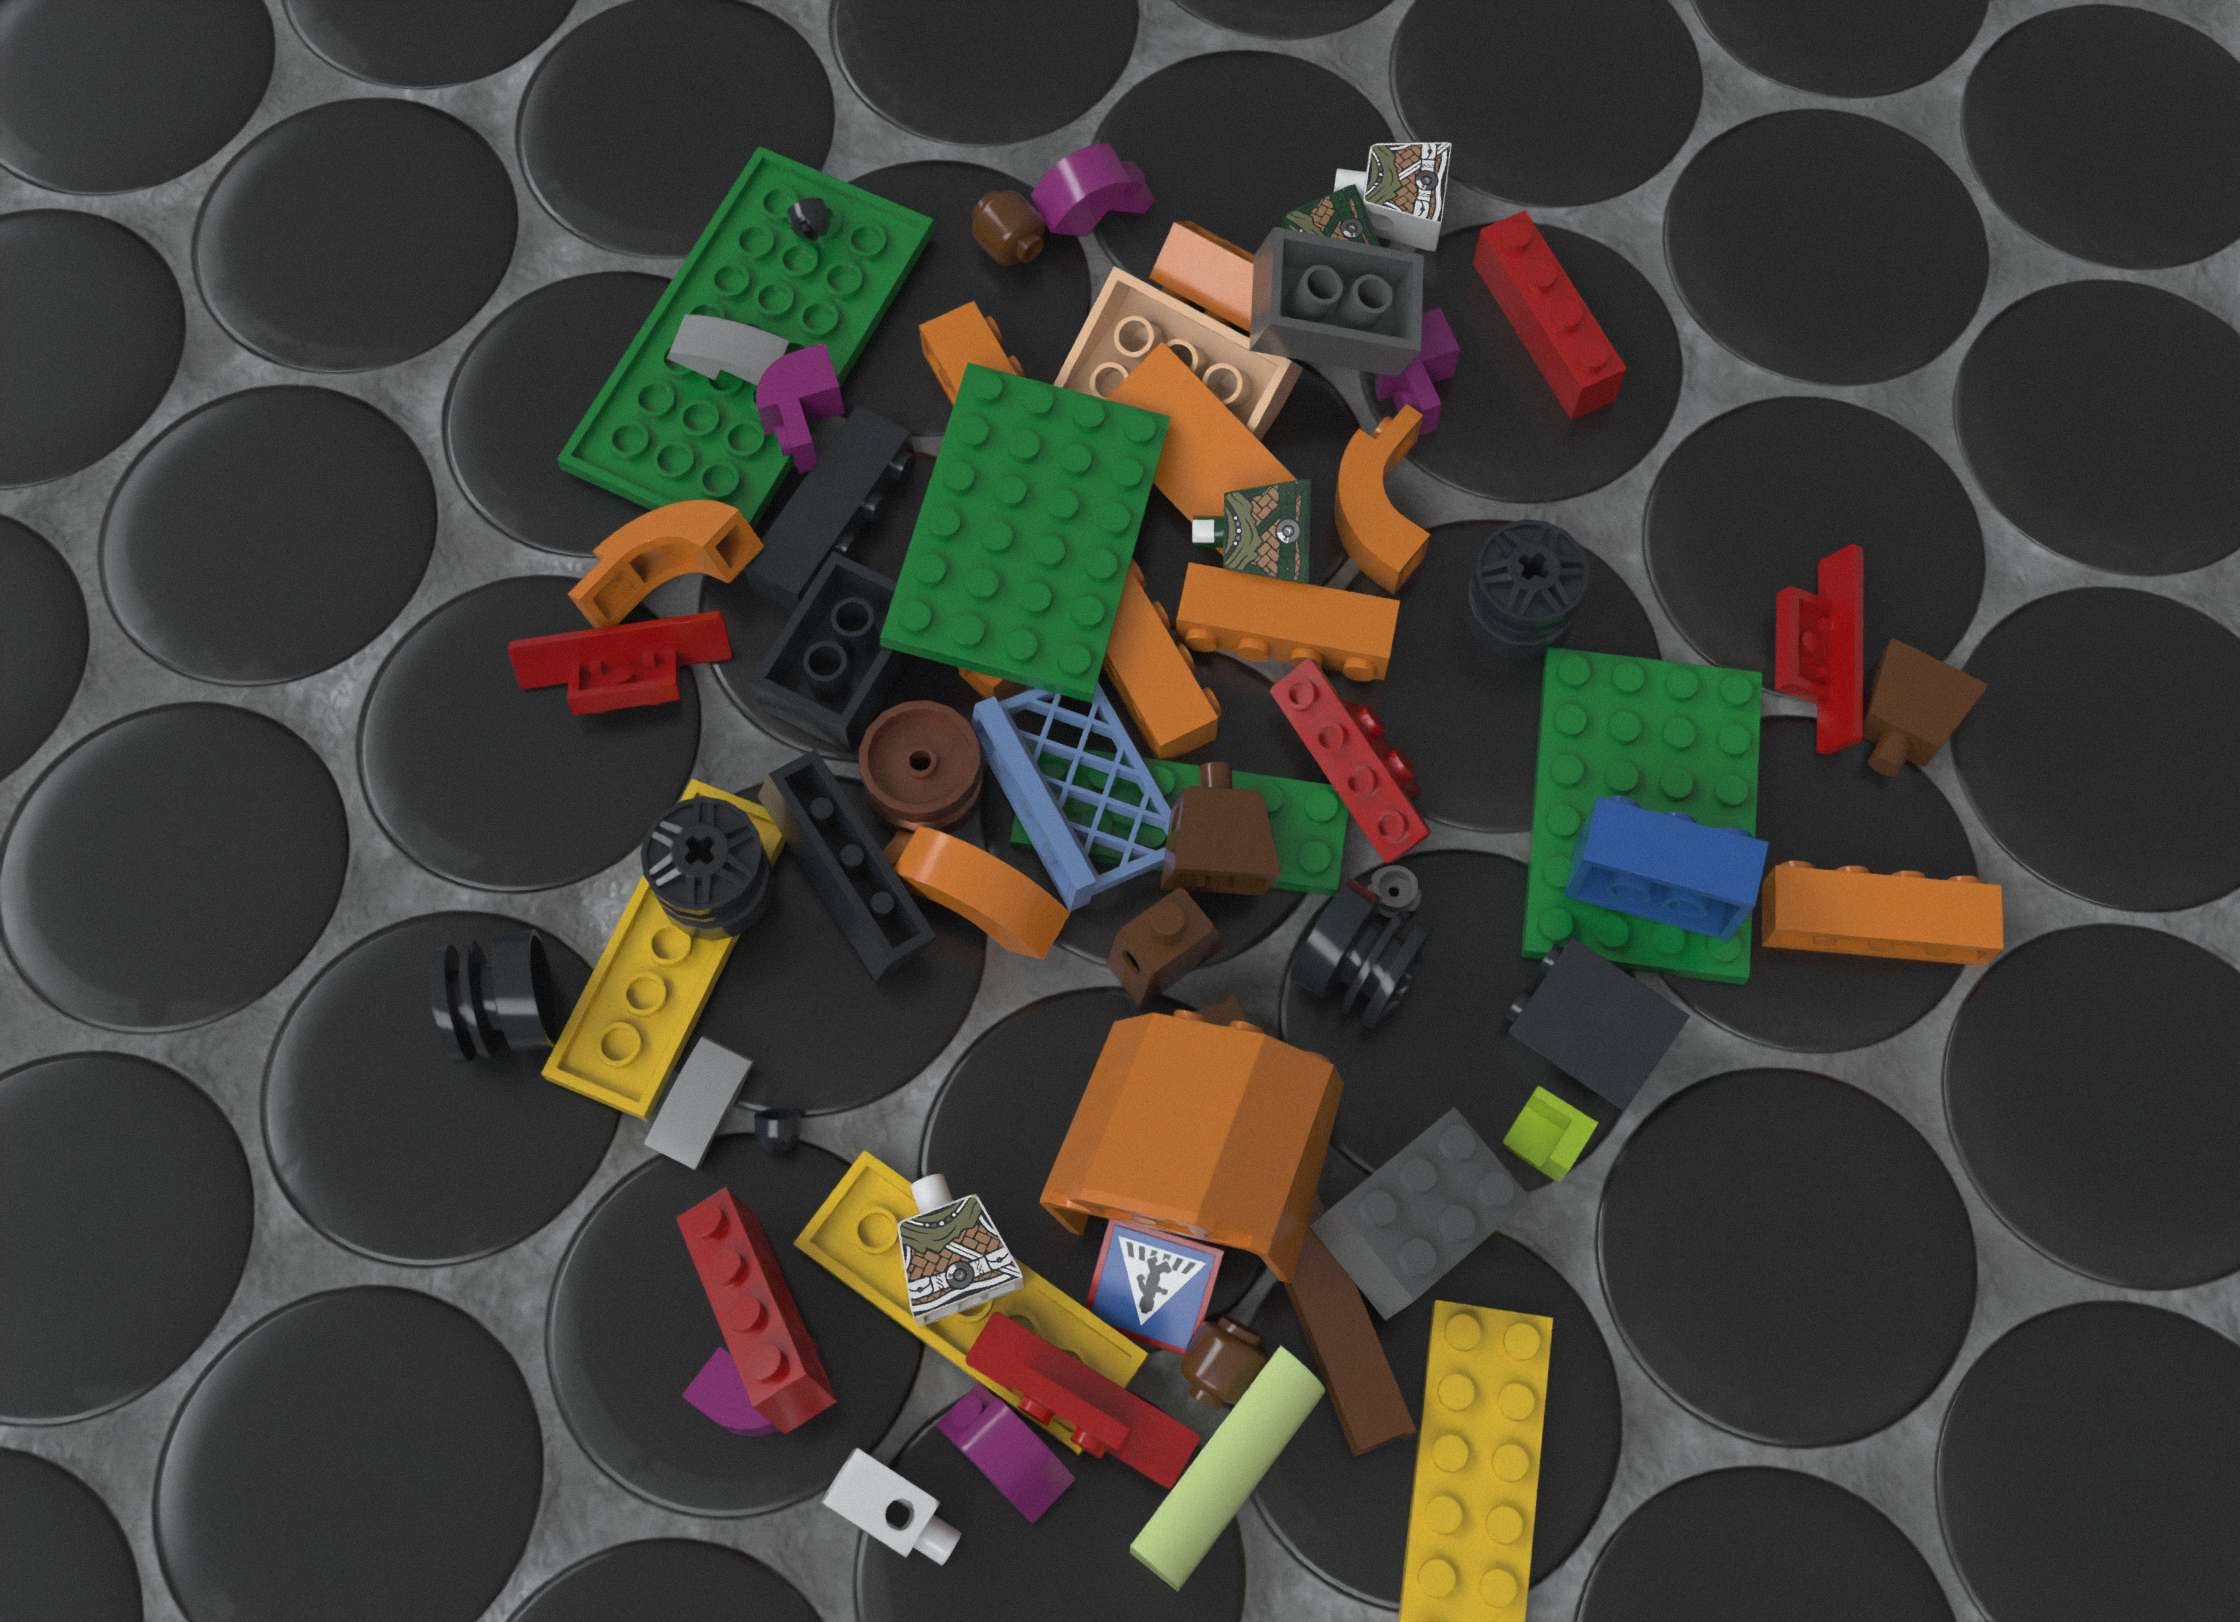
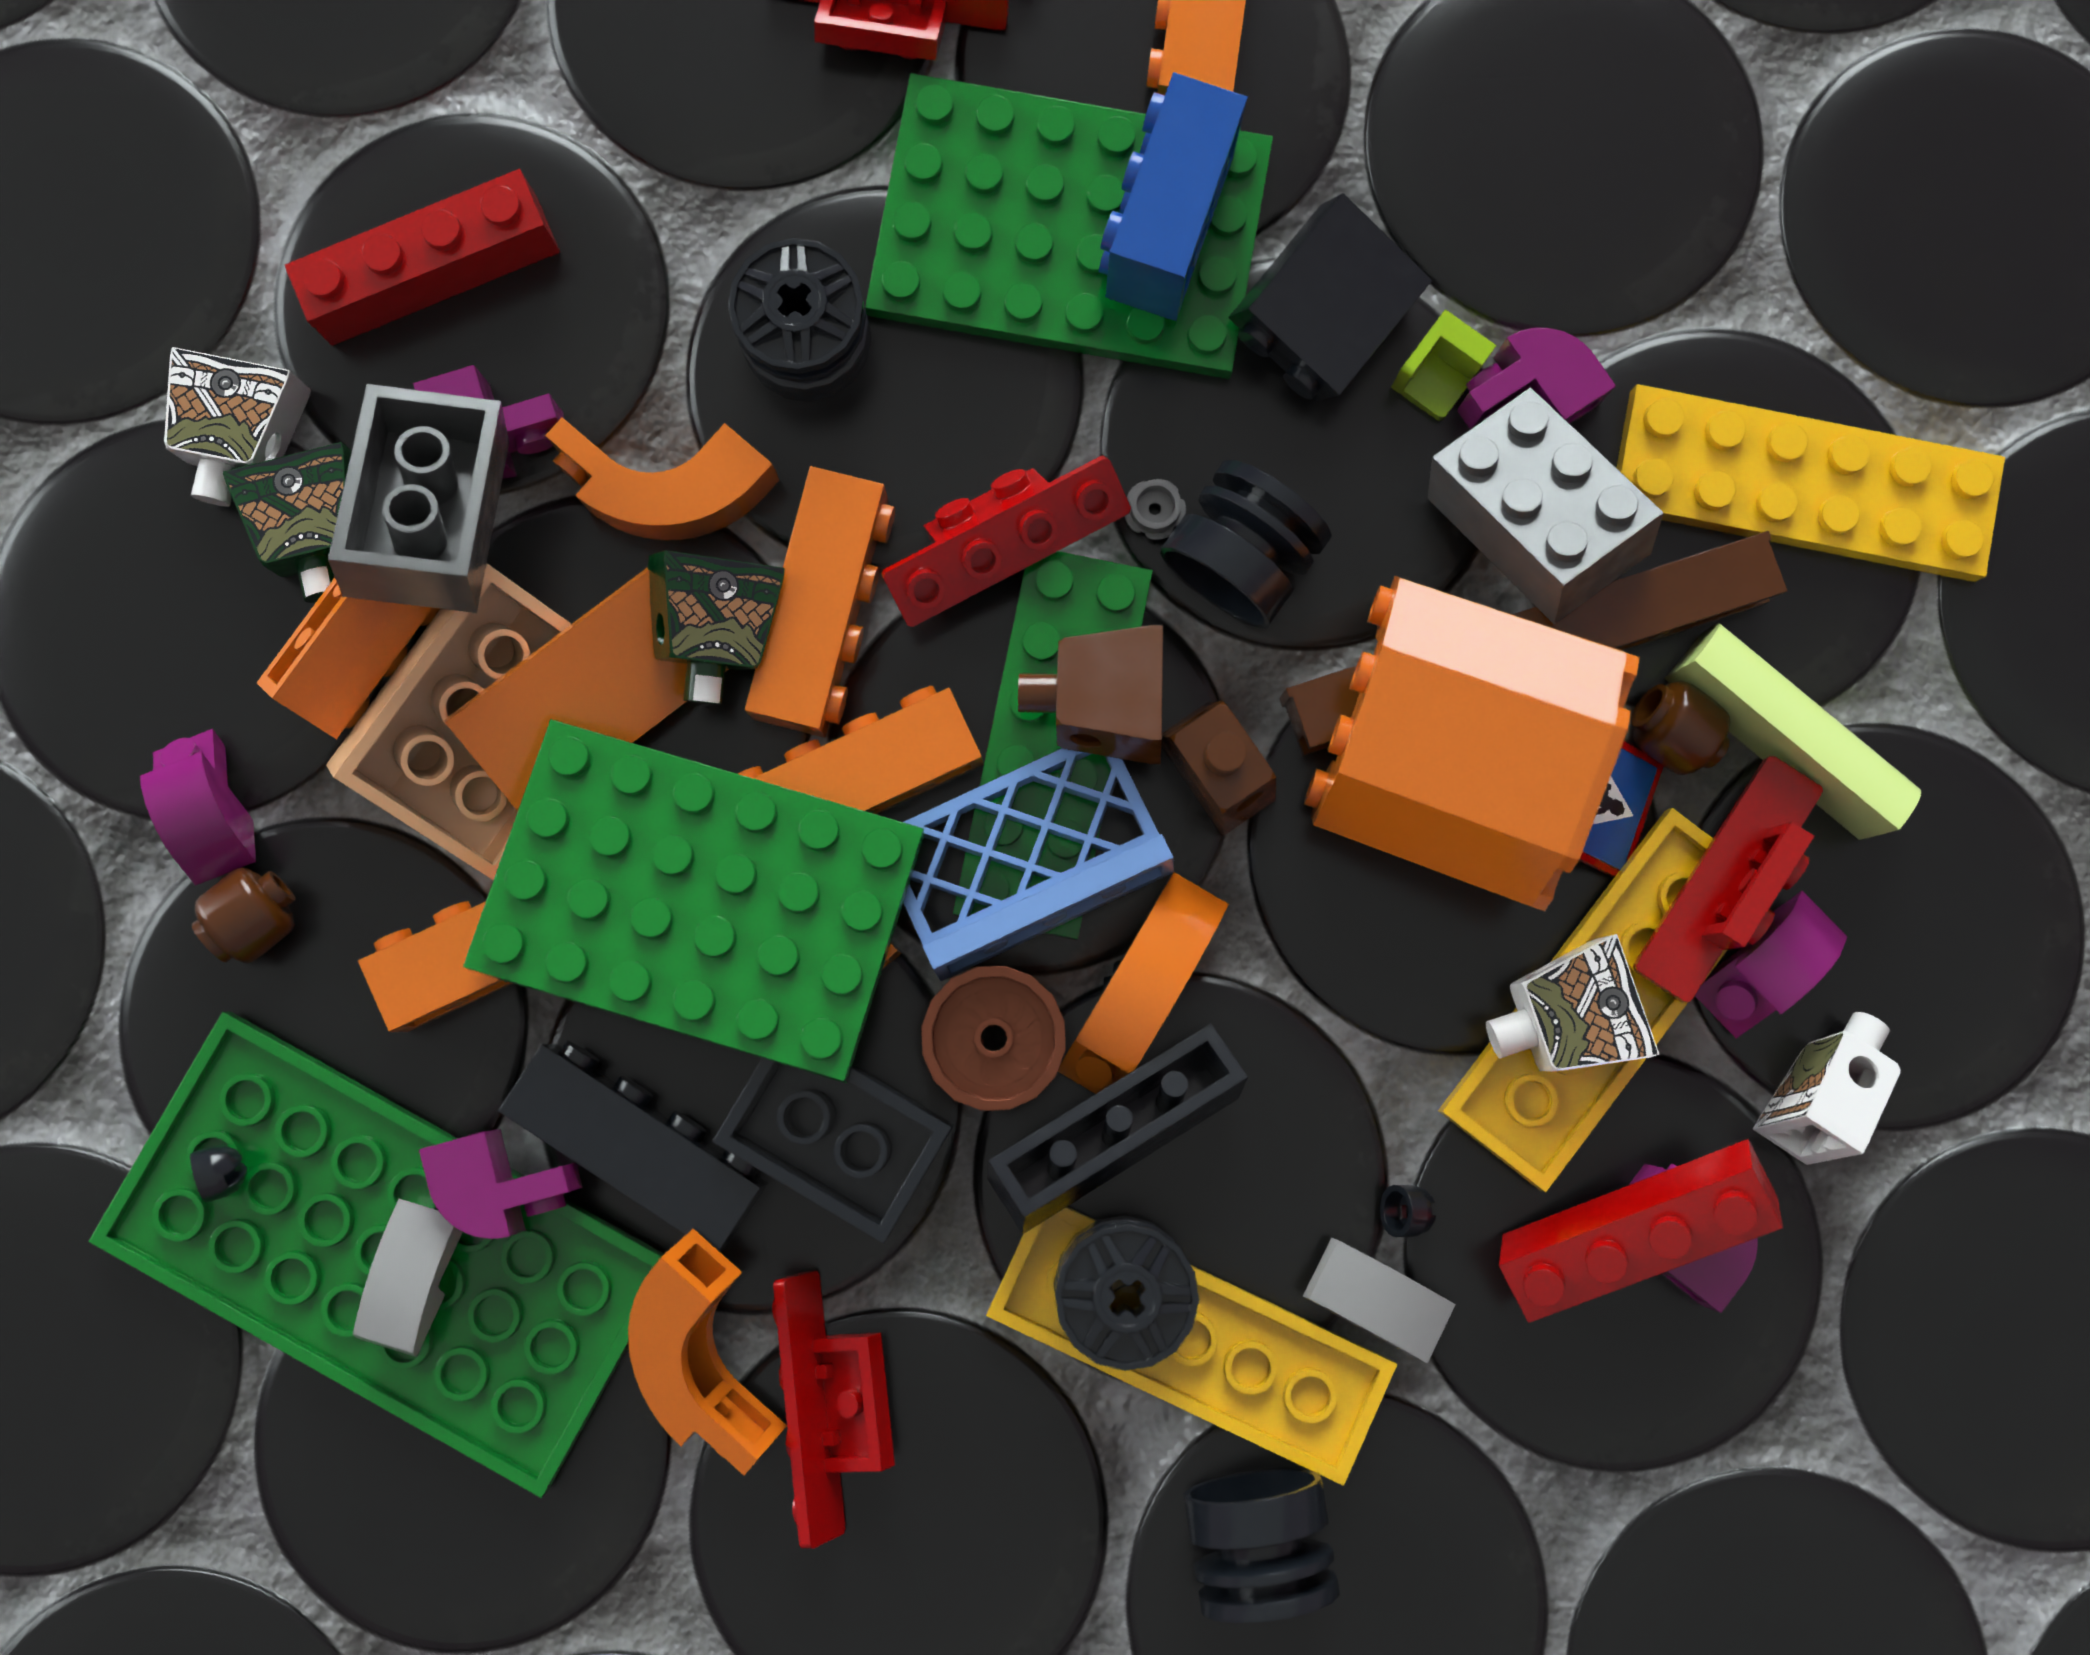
camera: 90 degrees left, 15 degrees up
(1556, 1223) = (1547, 361): none -> magenta brick

